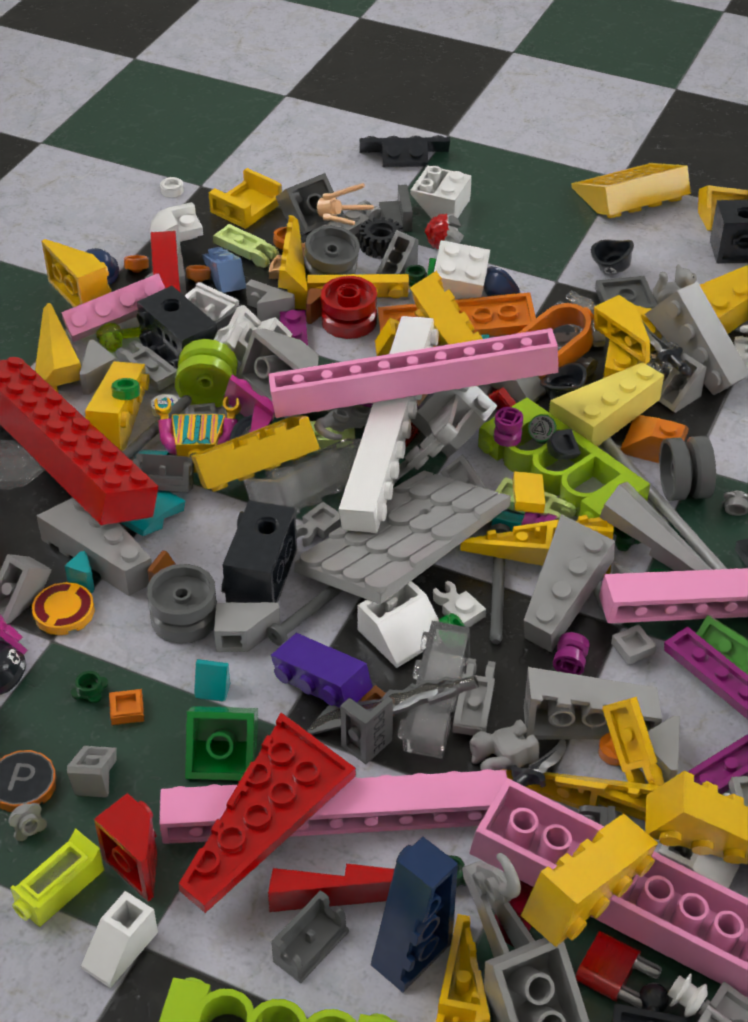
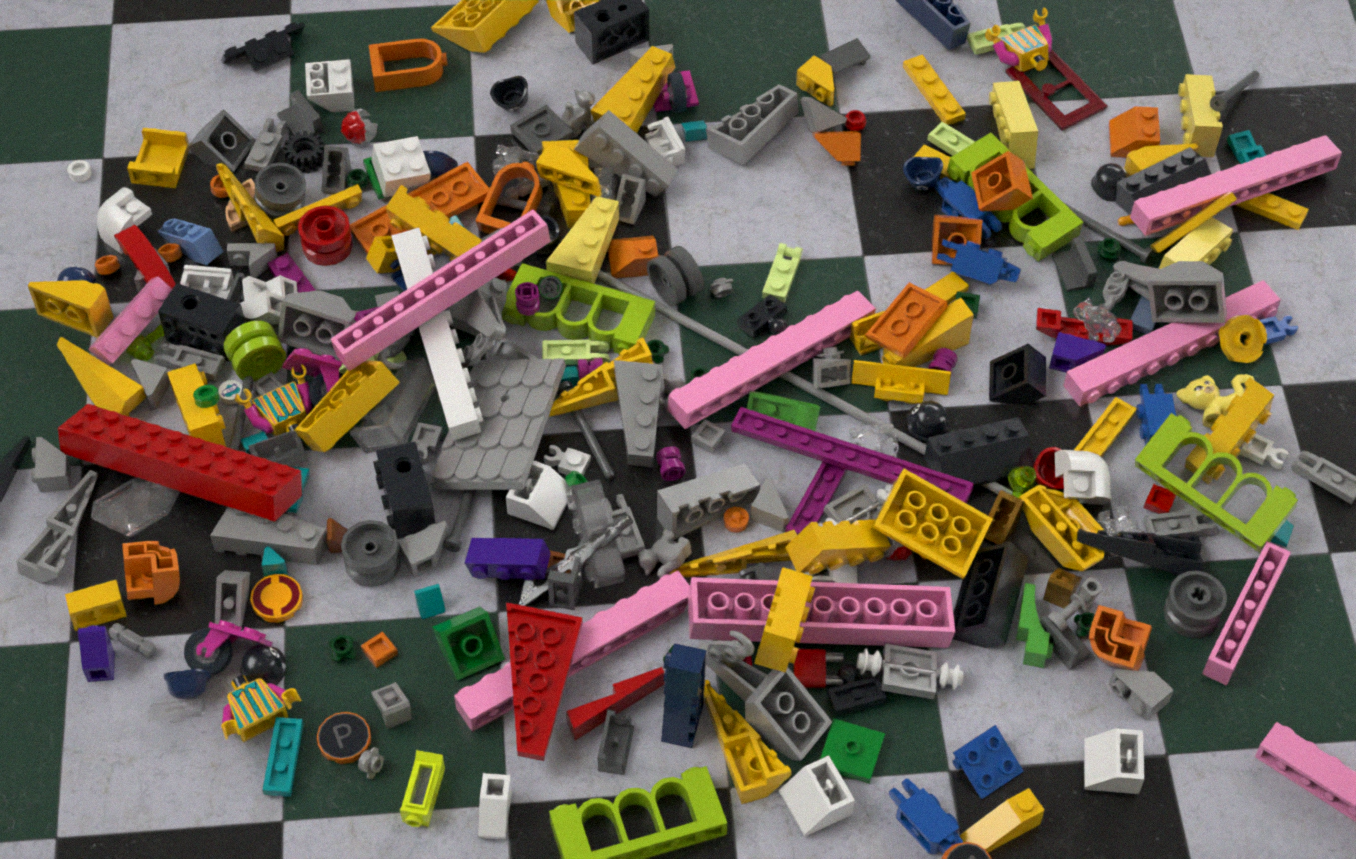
camera: 30 degrees left, 10 degrees up
(129, 843) = (461, 742): red slope -> none
(229, 335) = (256, 311): white tile -> none
(245, 245) = (191, 207): yellowish green hinge -> none
(313, 305) = (293, 243): dark orange slope -> none
(329, 206) = (245, 139): light nougat plant -> none
(522, 212) = (405, 50): none -> orange window
(528, 492) = (571, 347): yellow tile -> none
(534, 773) = (696, 559): piece -> none
(563, 445) = (574, 295): black tile -> none
(632, 742) = (750, 511): yellow hinge -> none
(637, 518) = (664, 336): light grey wedge -> none
(668, 355) = (612, 181): black piece -> none

